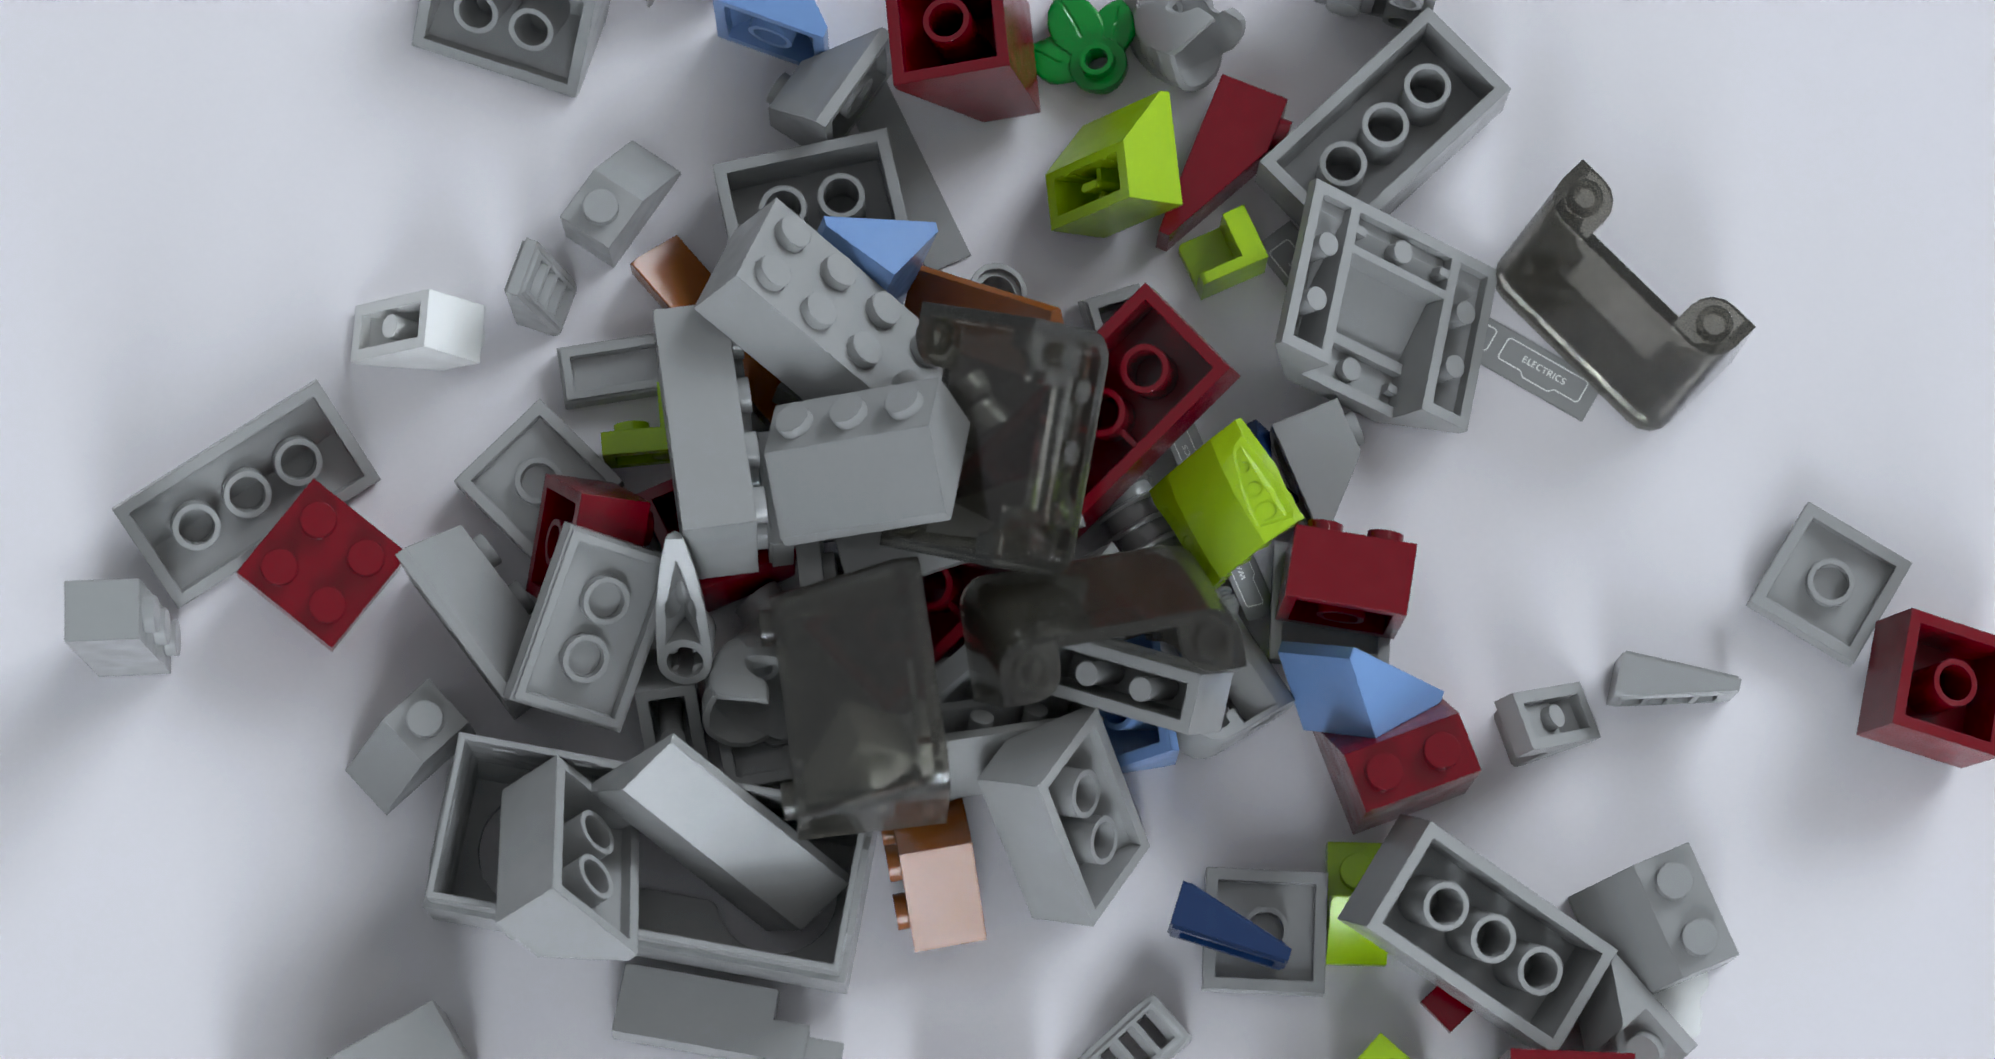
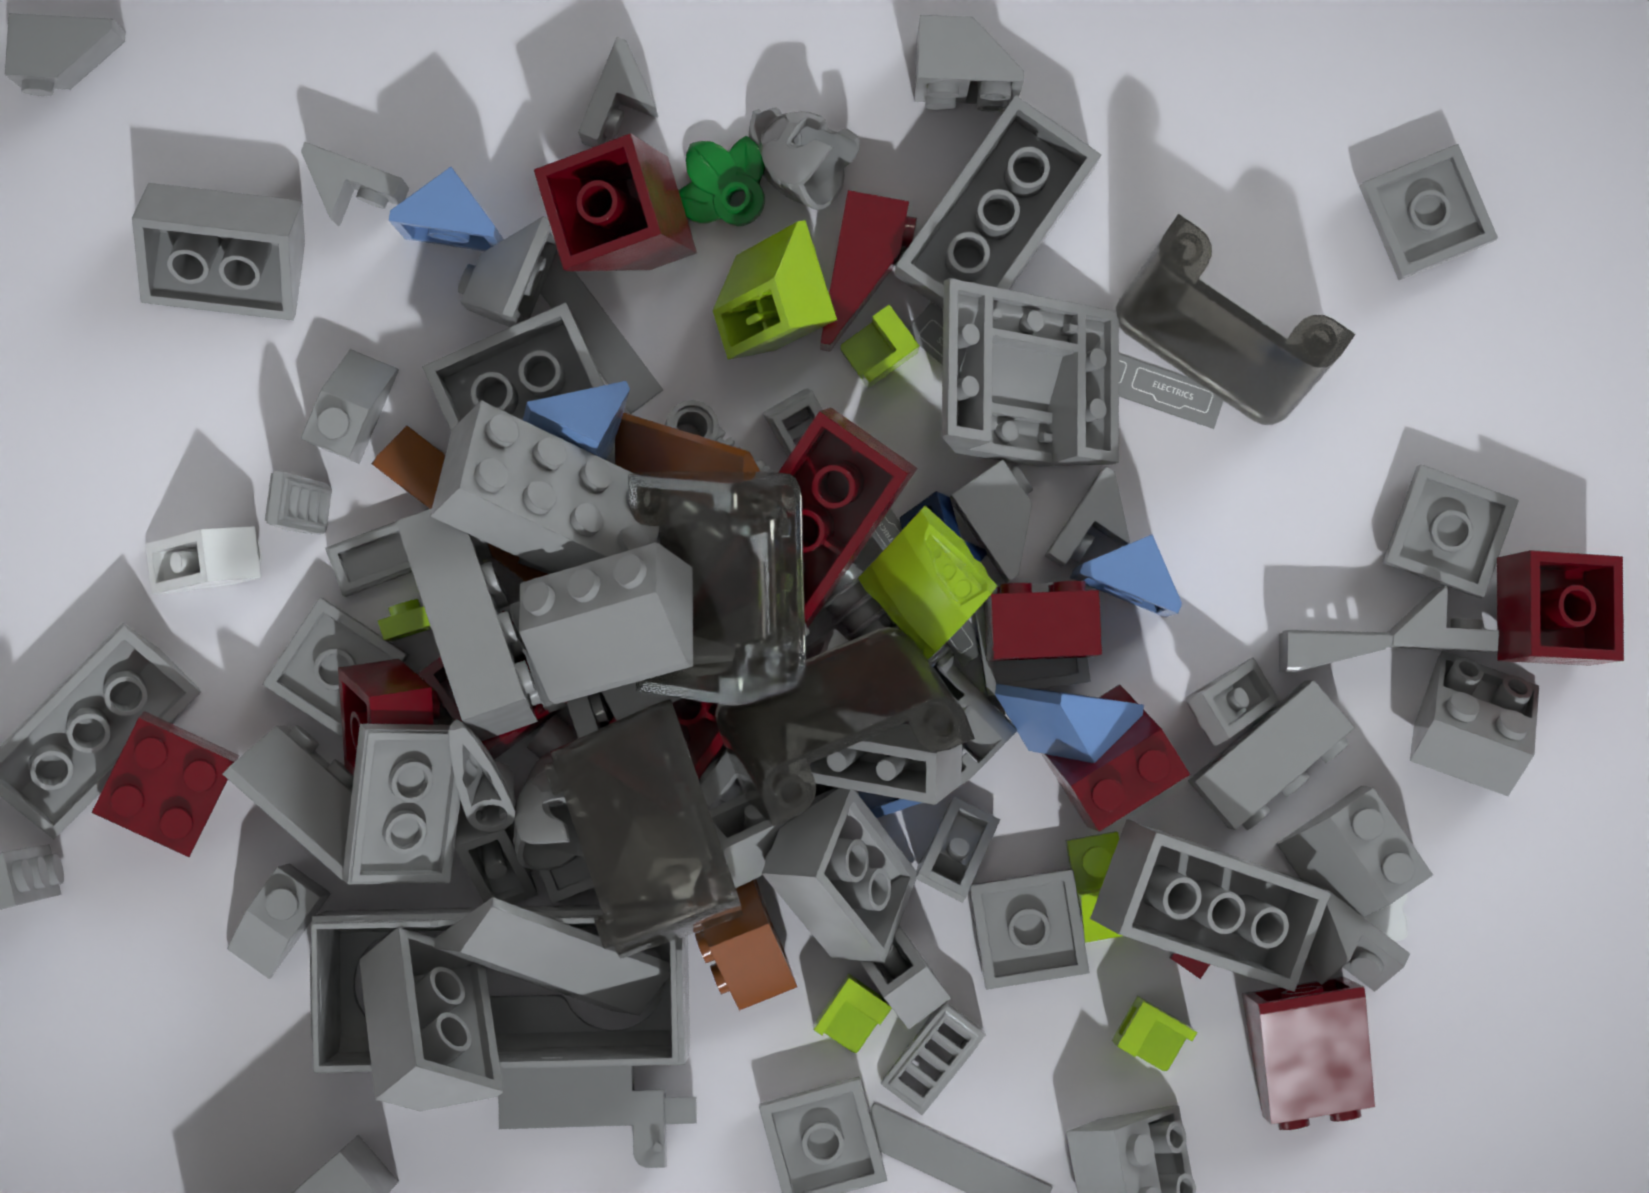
camera: 10 degrees left, 10 degrees up
(1042, 987) = (852, 1014): none -> lime panel
(1112, 957) = (907, 981): none -> light grey slope
(1201, 820) = (957, 849): none -> light grey slope
(1214, 925) = (984, 940): dark blue slope -> none
(1434, 480) = (1098, 508): none -> light grey slope
(1459, 554) = (1133, 575): none -> medium blue slope
(1580, 793) = (1273, 756): none -> light grey brick
(1782, 691) = (1426, 628): none -> light grey slope
(1820, 803) = (1476, 724): none -> light grey slope
(1866, 230) = (1428, 211): none -> light grey plate

